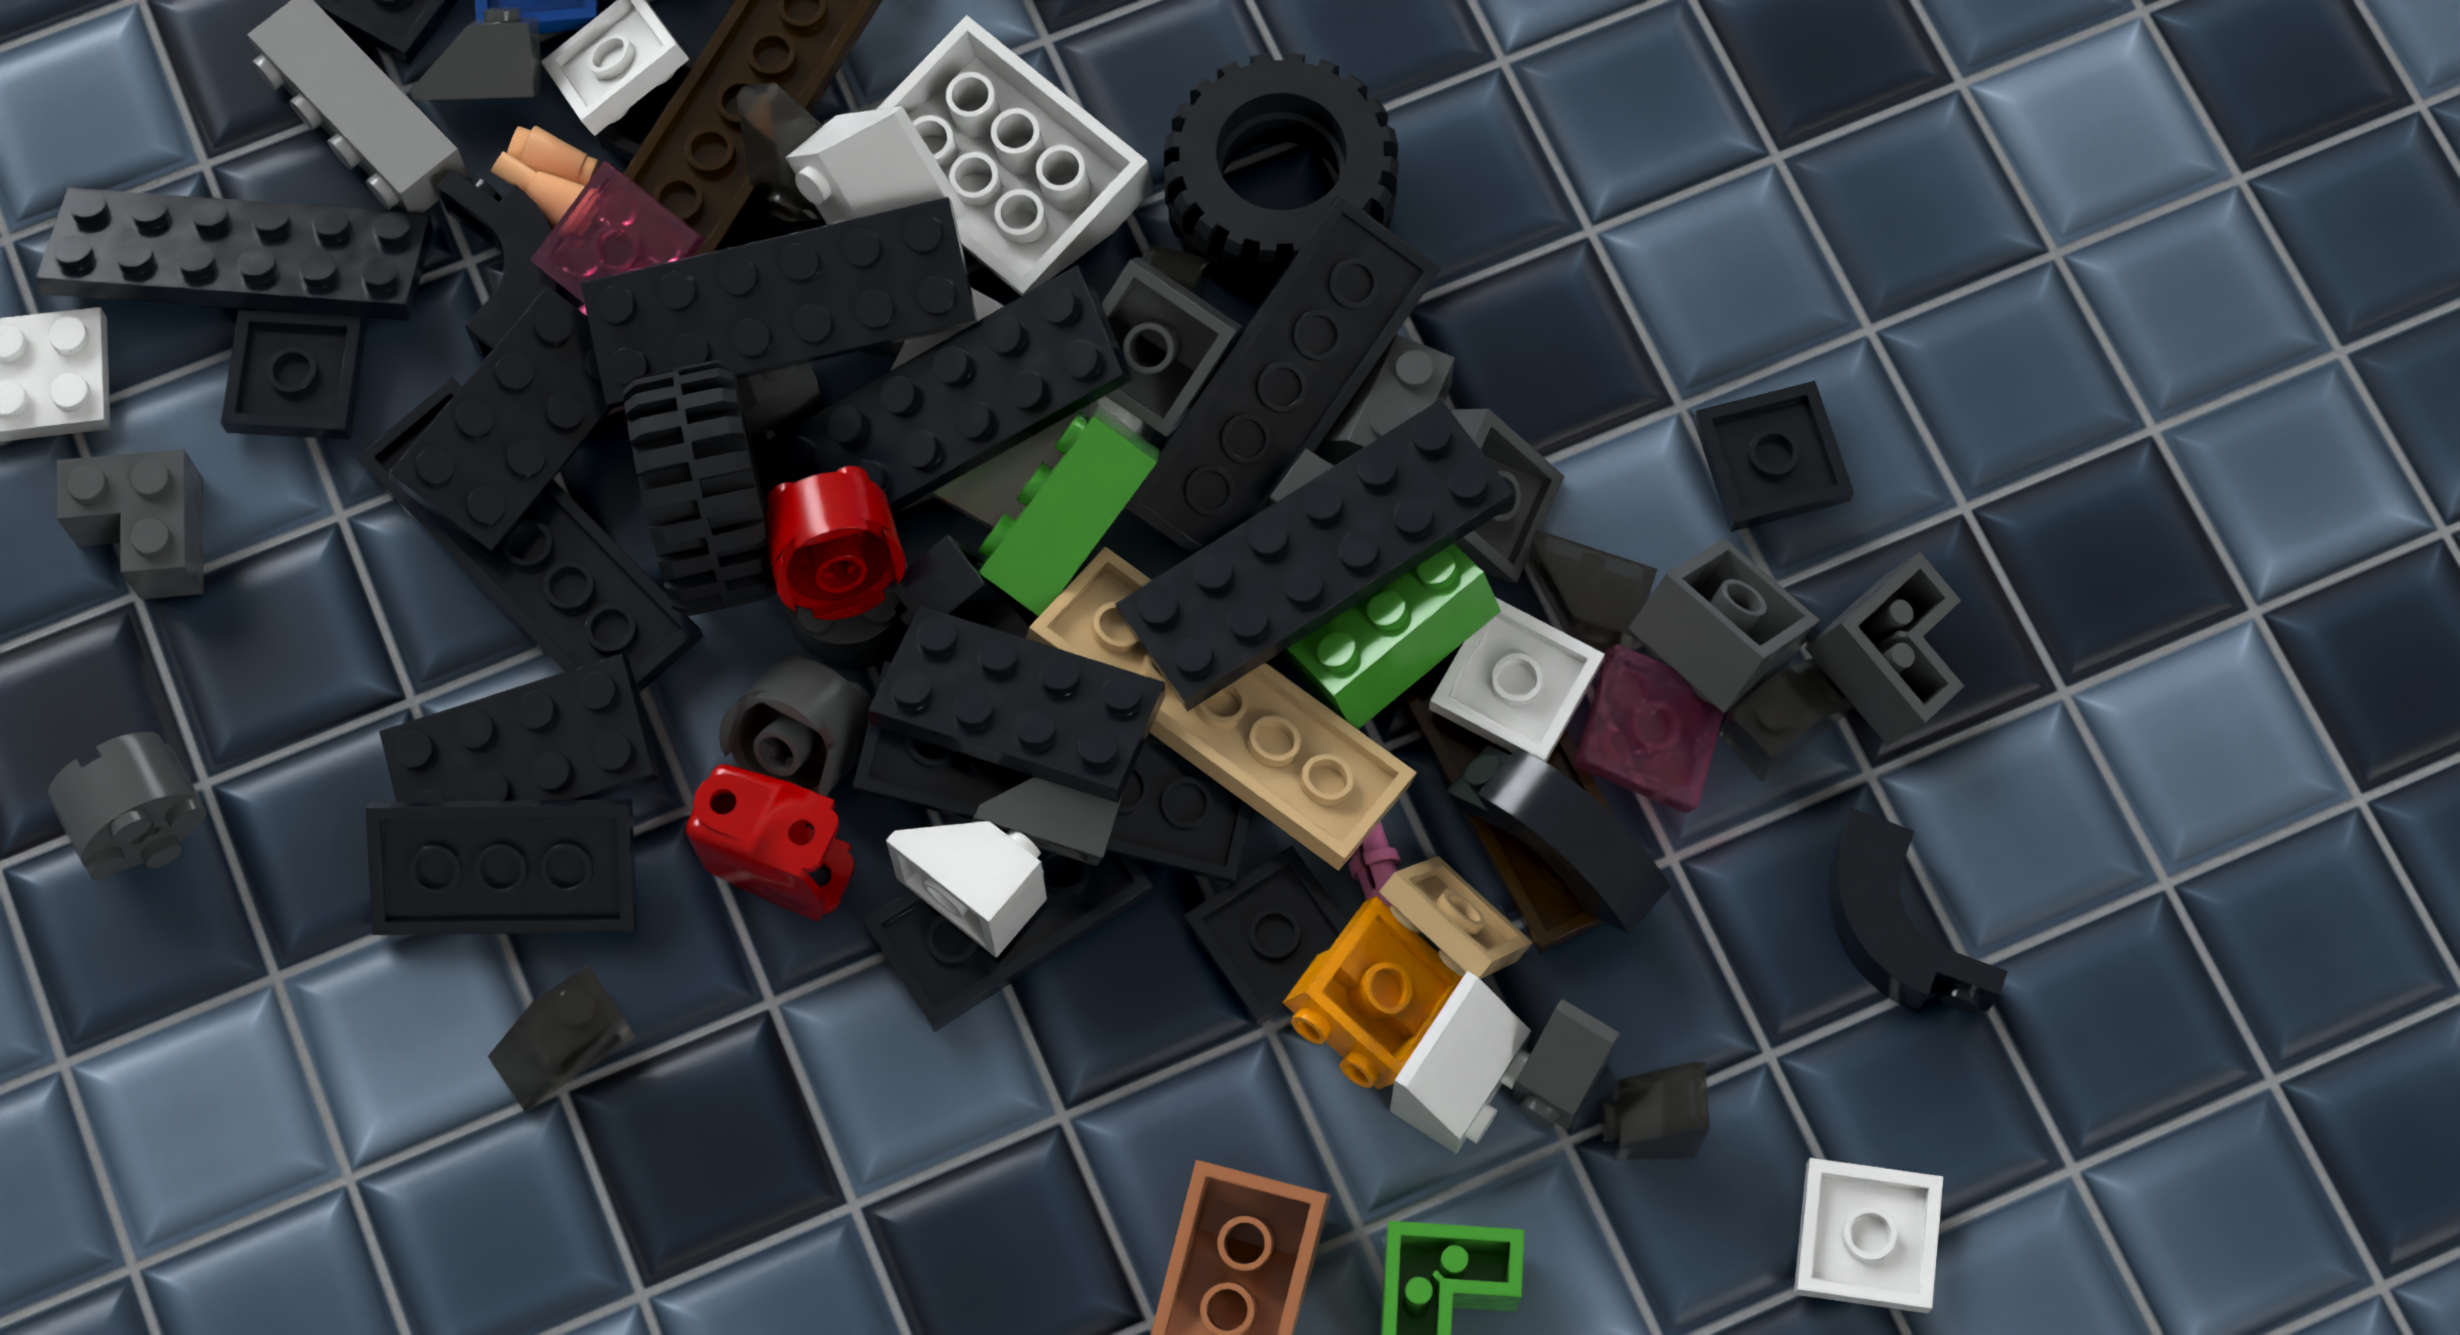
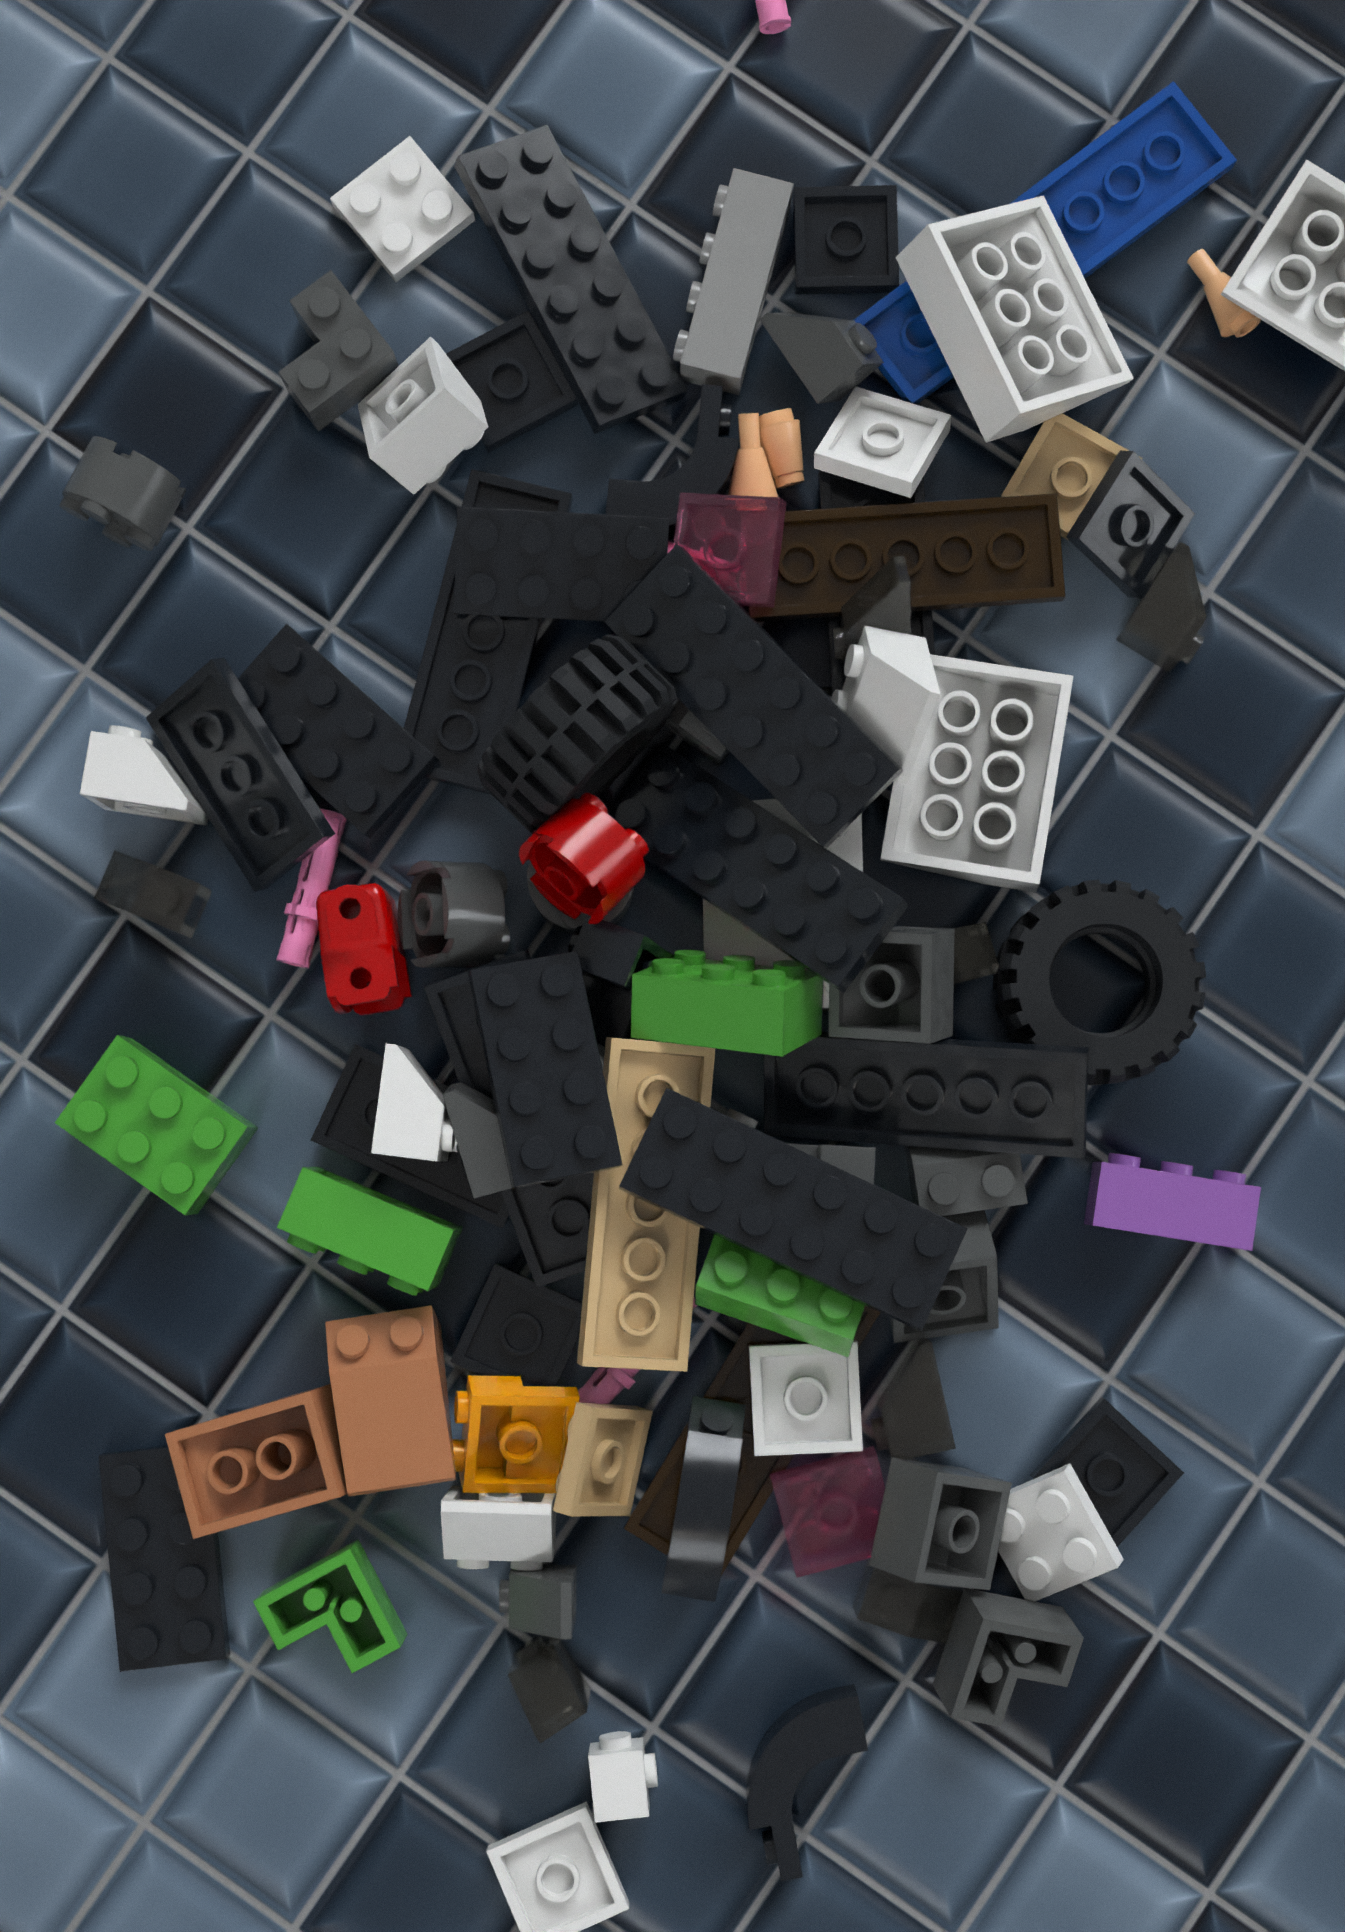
camera: 60 degrees right, 15 degrees up
(268, 468) = (421, 417): none -> white slope
(439, 962) = (136, 778): none -> white slope
(689, 892) = (313, 879): none -> bright pink pin
(809, 1175) = (156, 1125): none -> bright green brick
(1066, 1008) = (368, 1230): none -> bright green brick
(1257, 1094) = (391, 1400): none -> nougat slope
(1541, 241) = (1172, 1202): none -> medium lavender brick
(1799, 1105) = (621, 1777): none -> white brick
(1804, 532) = (1054, 1535): none -> white plate

